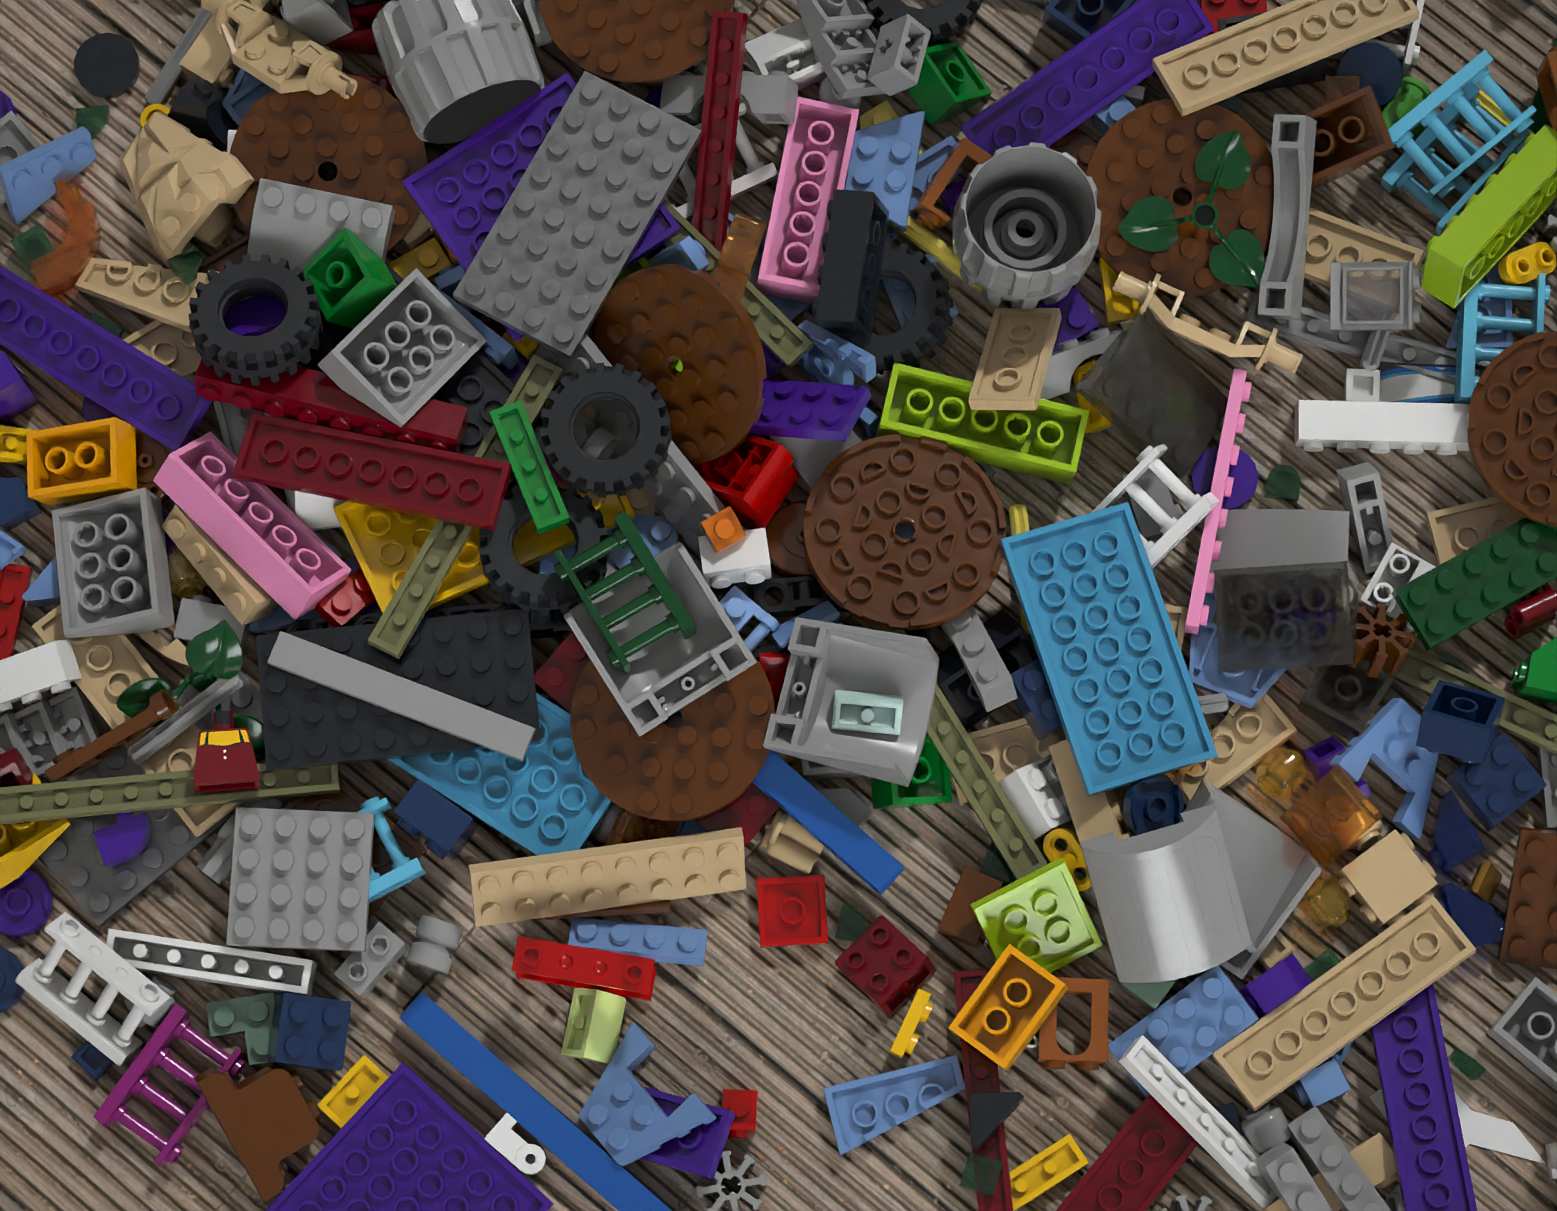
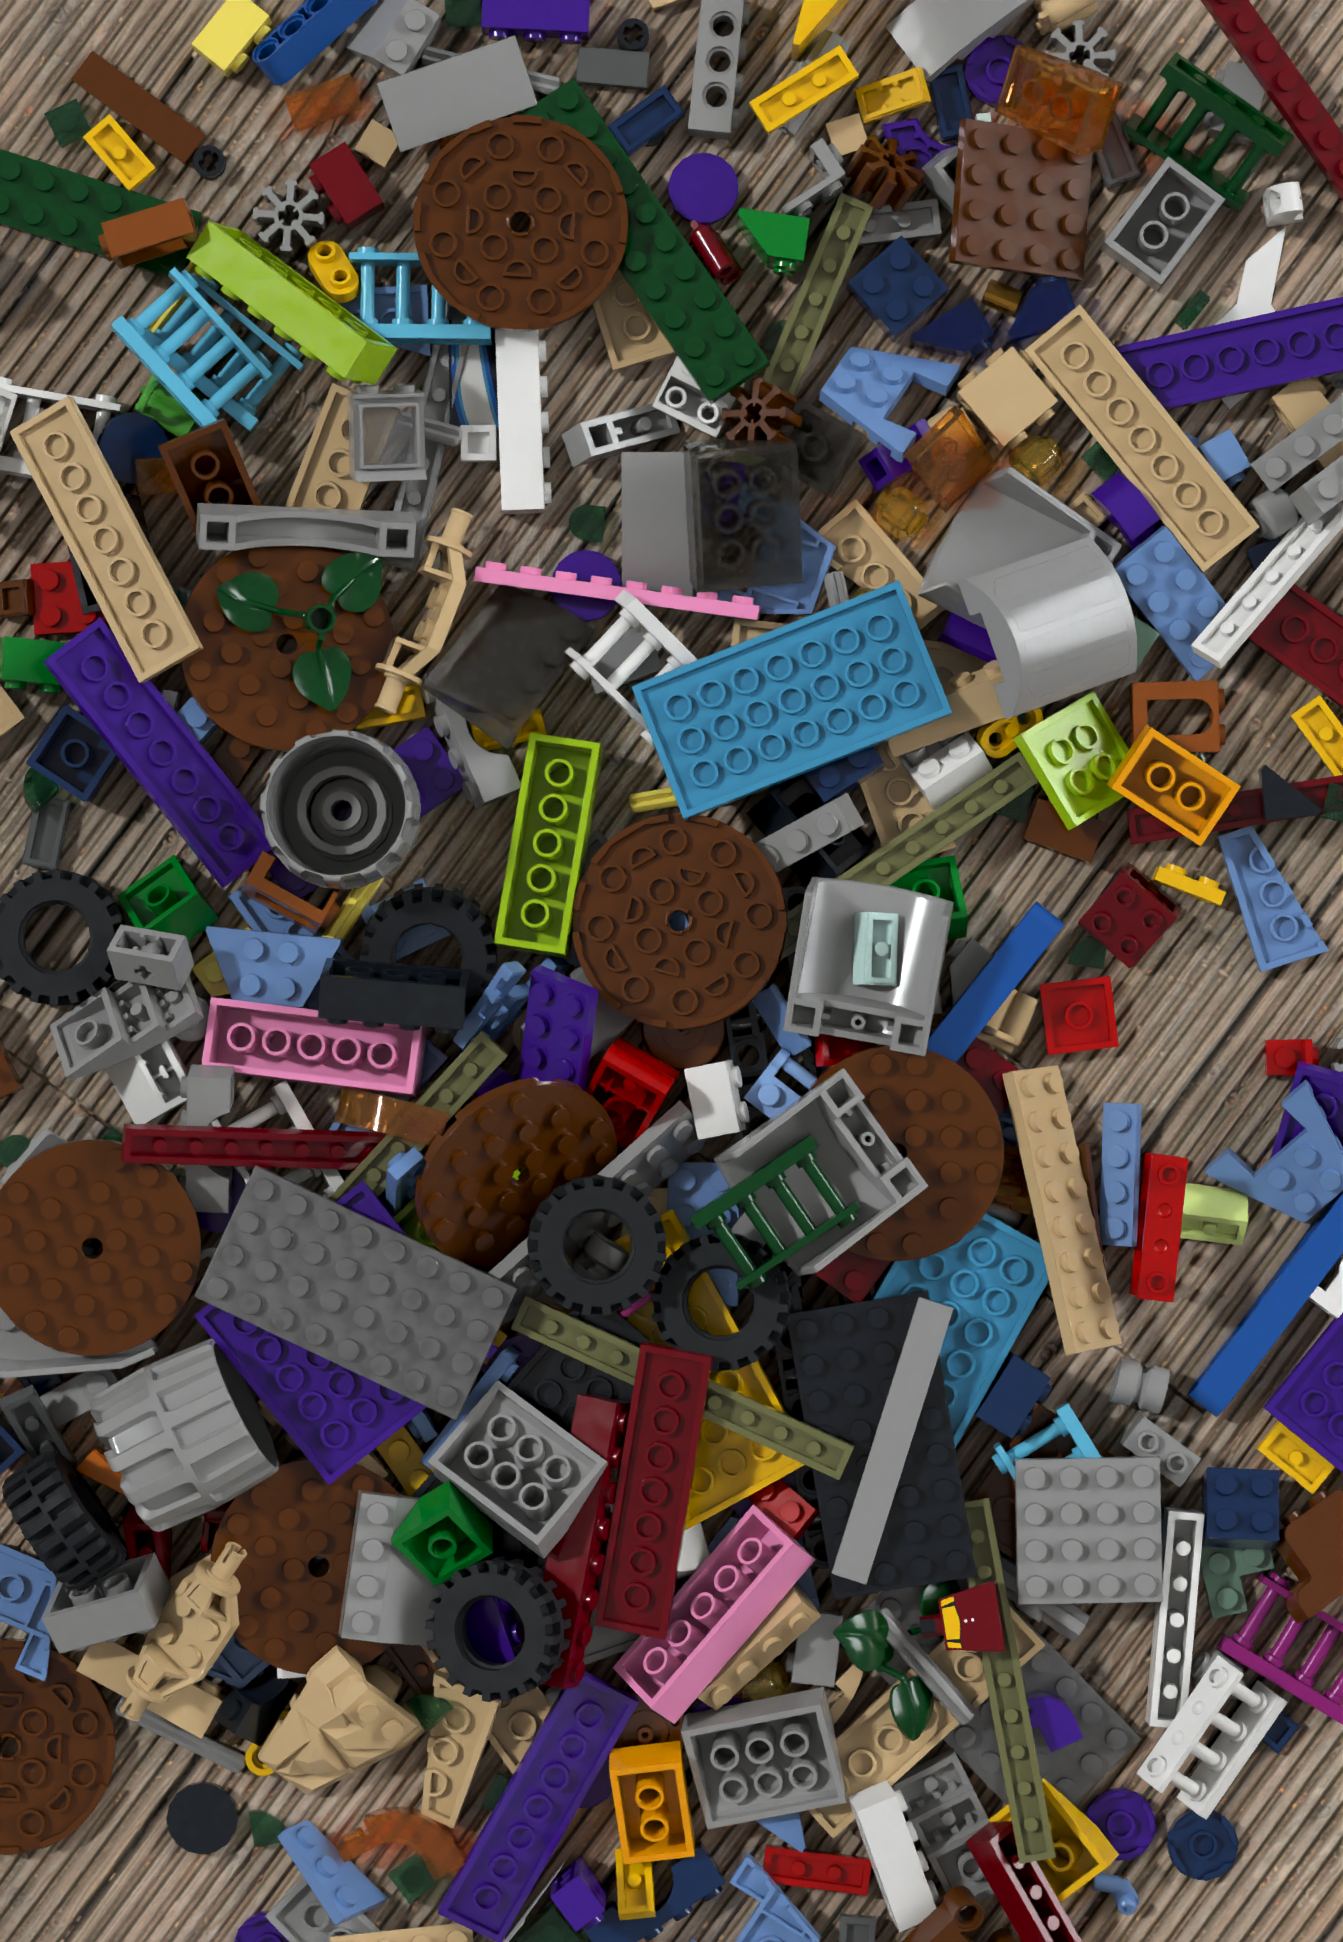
camera: 90 degrees left, 10 degrees up
(77, 761) = (973, 1772): reddish brown plate -> none
(529, 467) = (641, 1323): green plate -> none
(722, 529) = (691, 1113): orange plate -> none
(1015, 359) = (482, 814): tan plate -> none
(1152, 804) = (956, 645): dark blue tile -> none
(1460, 722) = (844, 327): dark blue brick -> none

